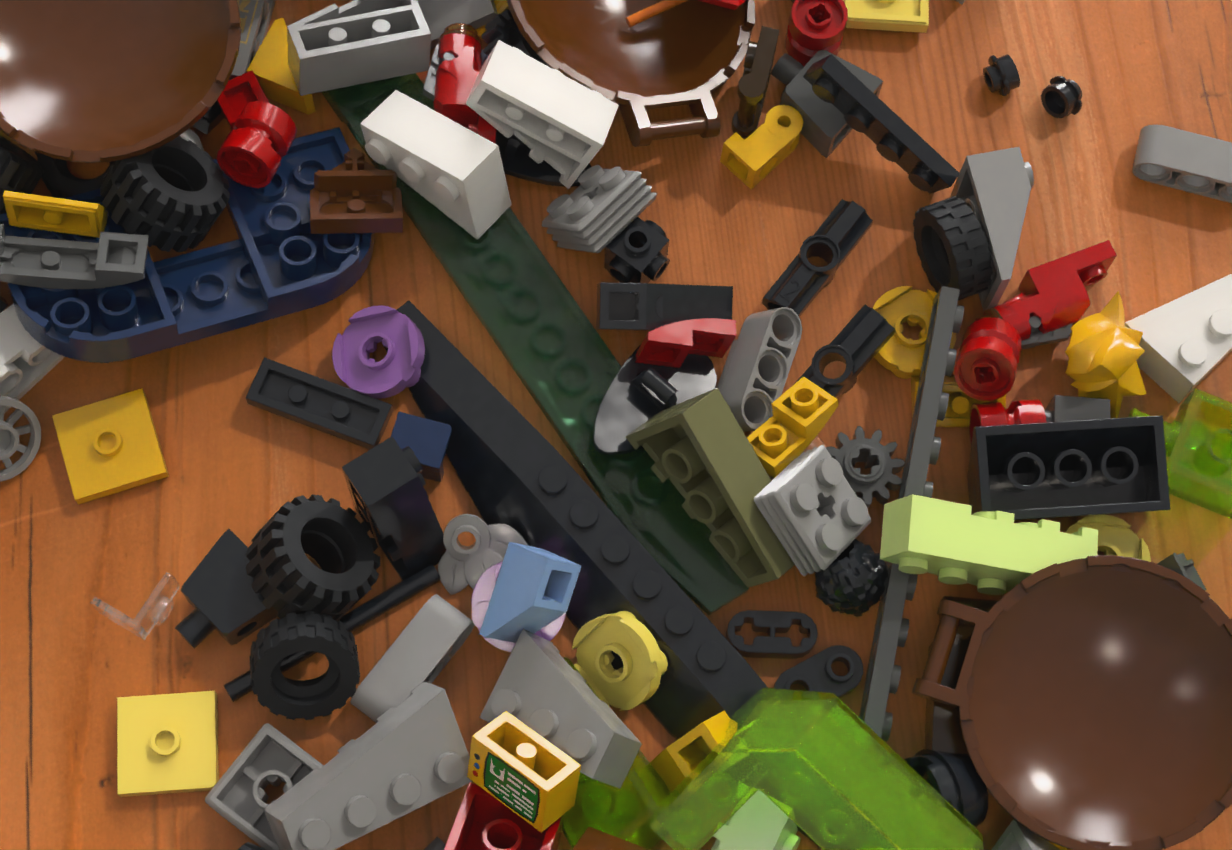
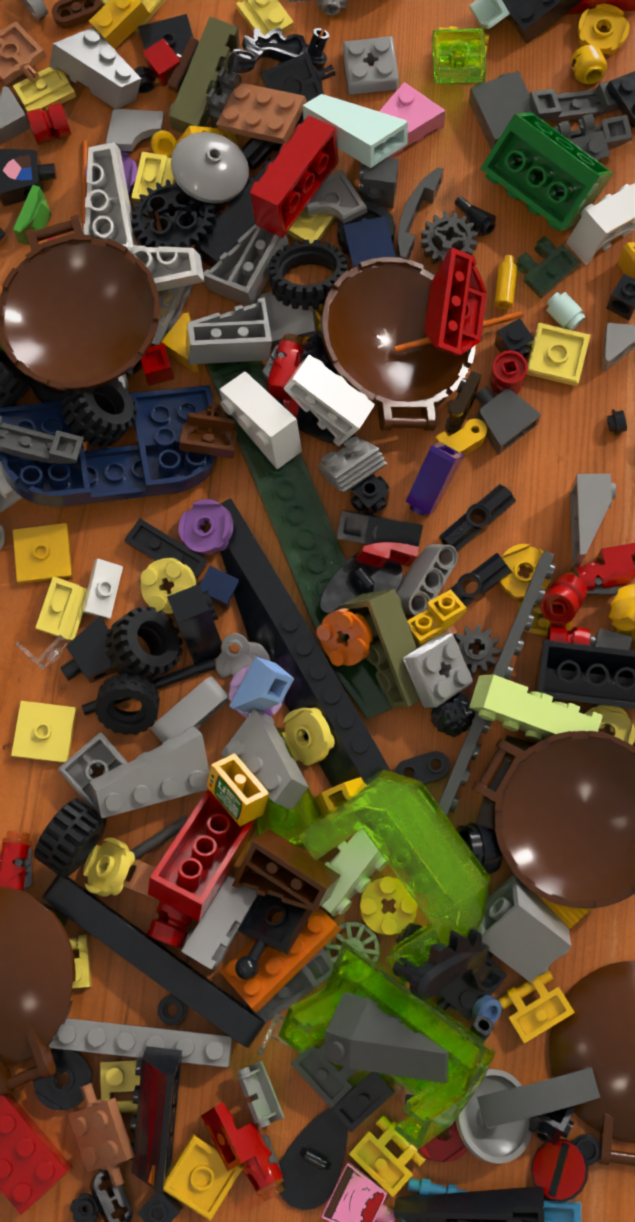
camera: 20 degrees right, 5 degrees up
(55, 214) = (33, 414): yellow slope -> none
(161, 530) = (62, 609): none -> light yellow plate
(223, 485) = (102, 589): none -> white plate
(257, 144) = (157, 390): red wheel -> none
(307, 450) = (153, 579): none -> light yellow plate
(625, 488) = (333, 644): none -> orange plate
(736, 208) = (433, 478): none -> dark purple slope
(771, 623) = (402, 730): black beam -> none
(871, 116) = (525, 436): black plate -> none
(952, 247) = (558, 527): black tyre -> none

